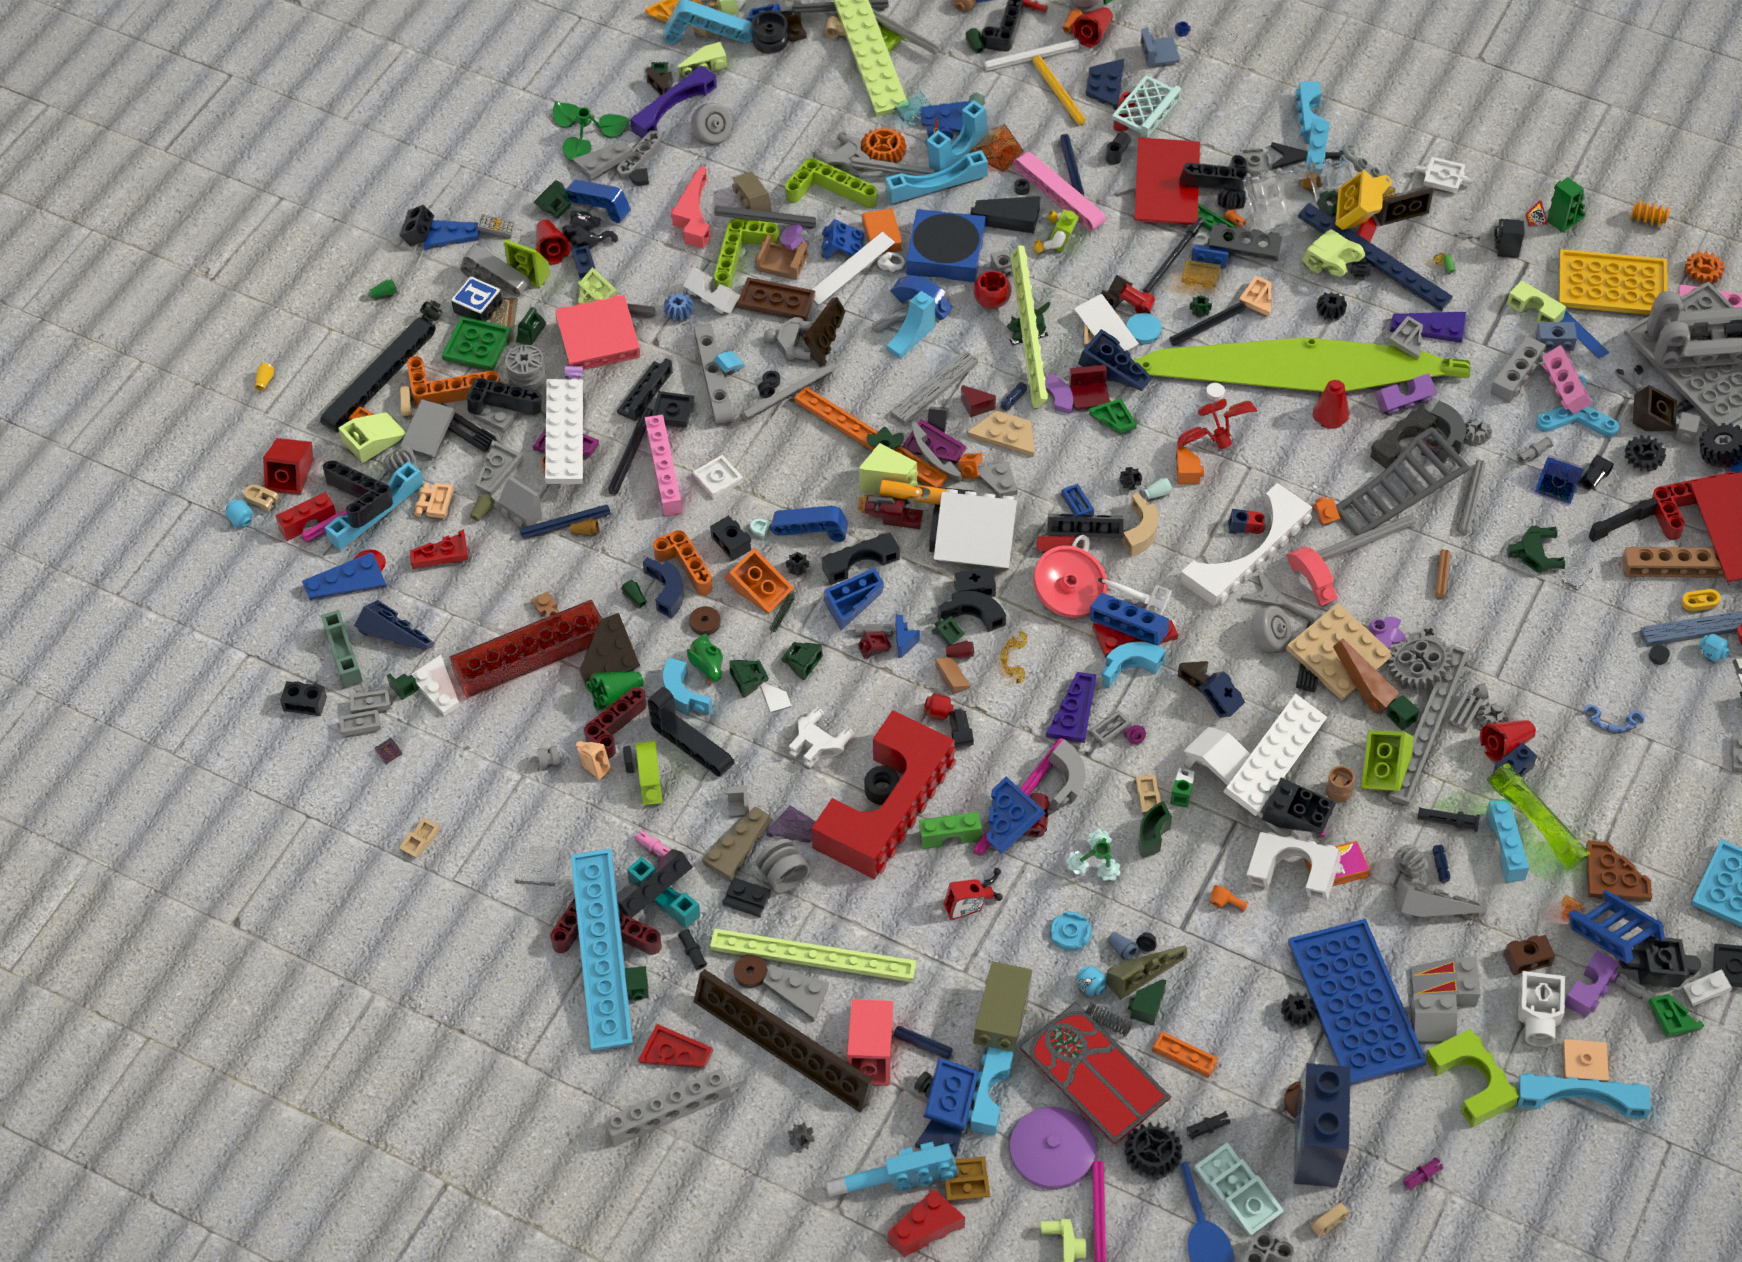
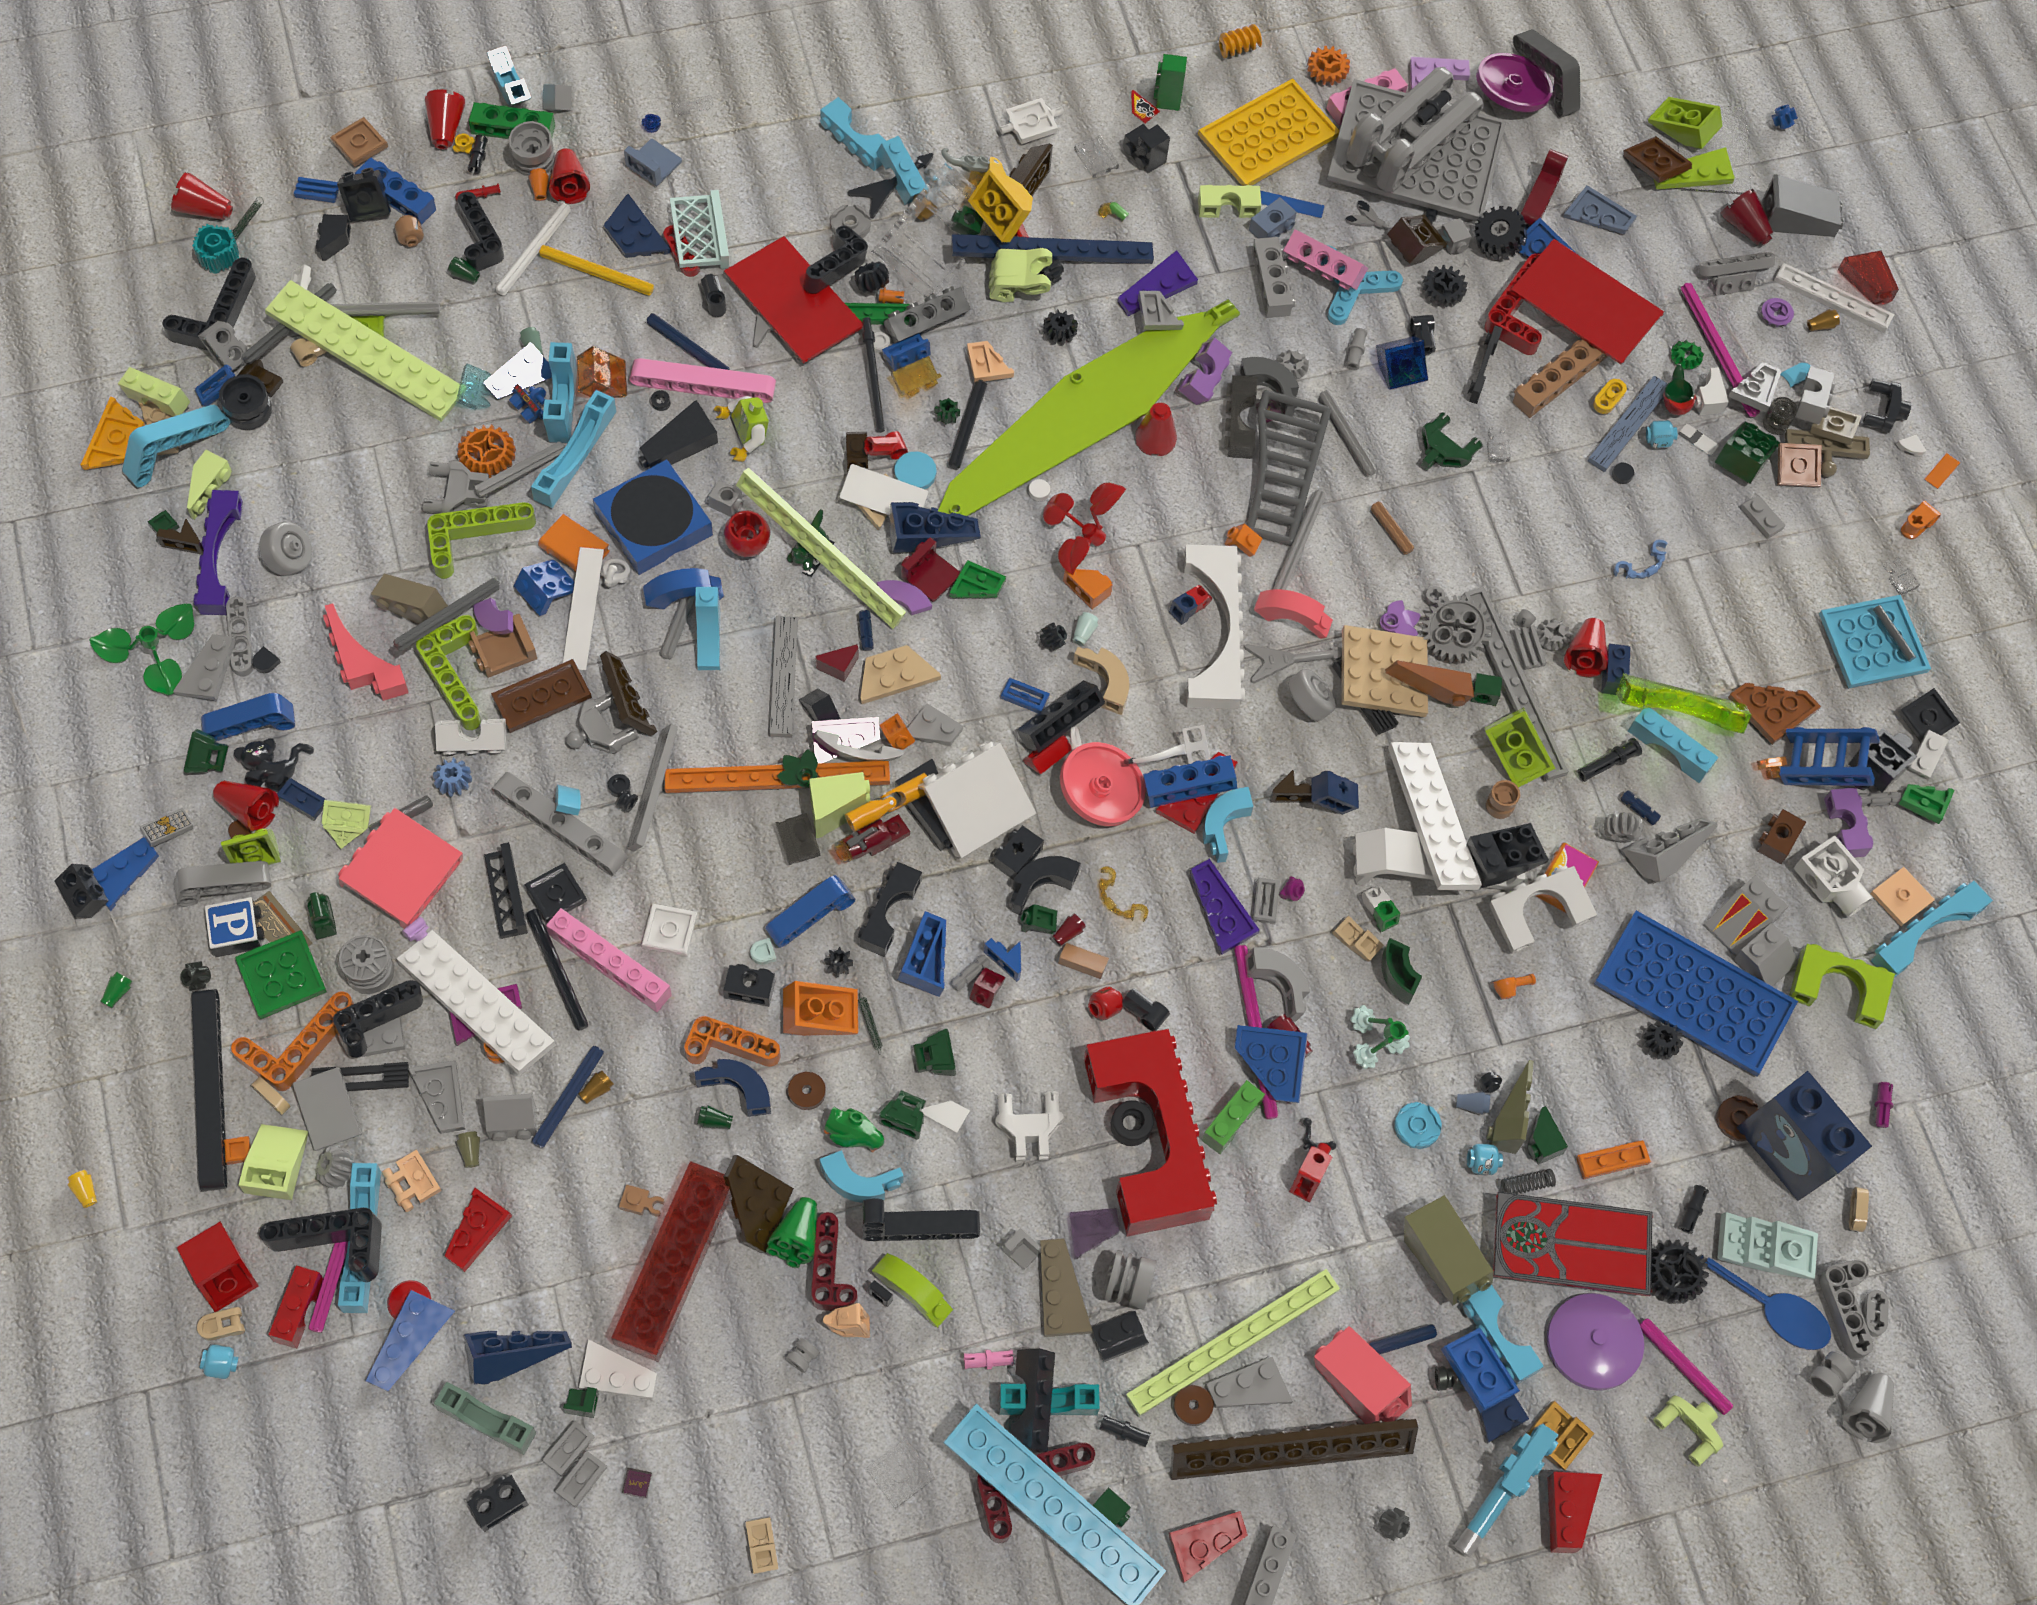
camera: 50 degrees left, 10 degrees up
(844, 481) = (798, 839): none -> clear smoke plate

